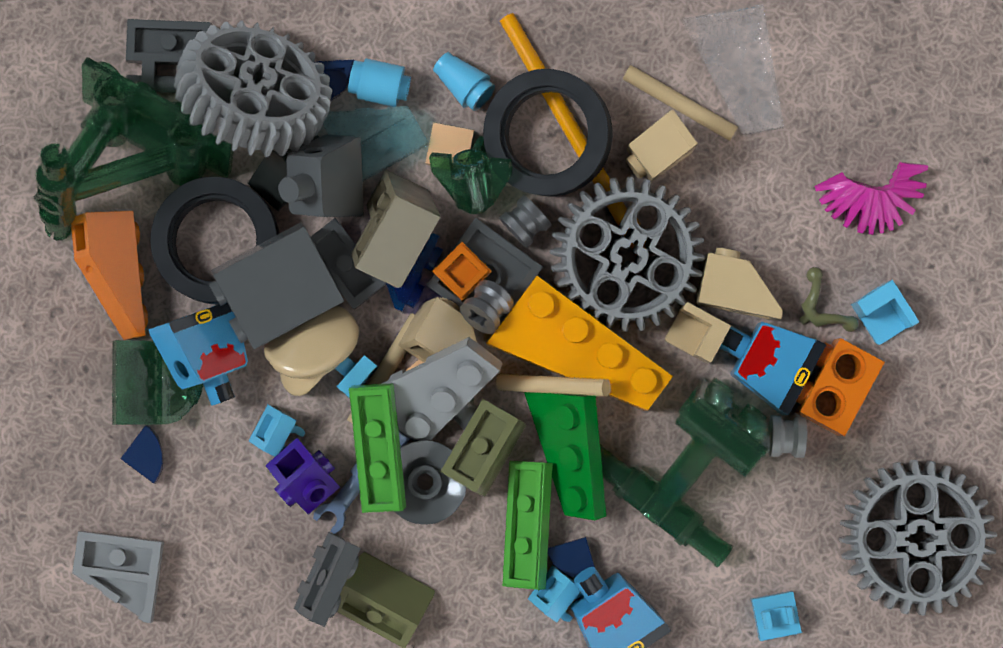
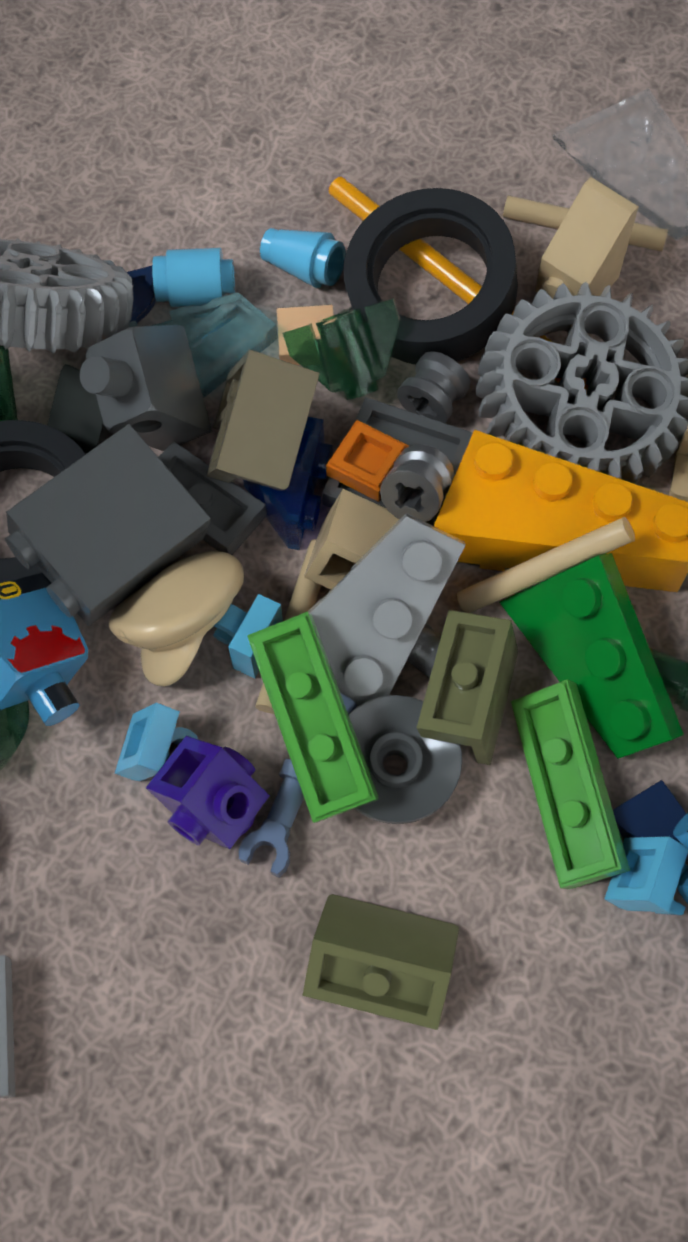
camera: 10 degrees left, 20 degrees down
(321, 591) = (286, 920): dark grey plate -> none

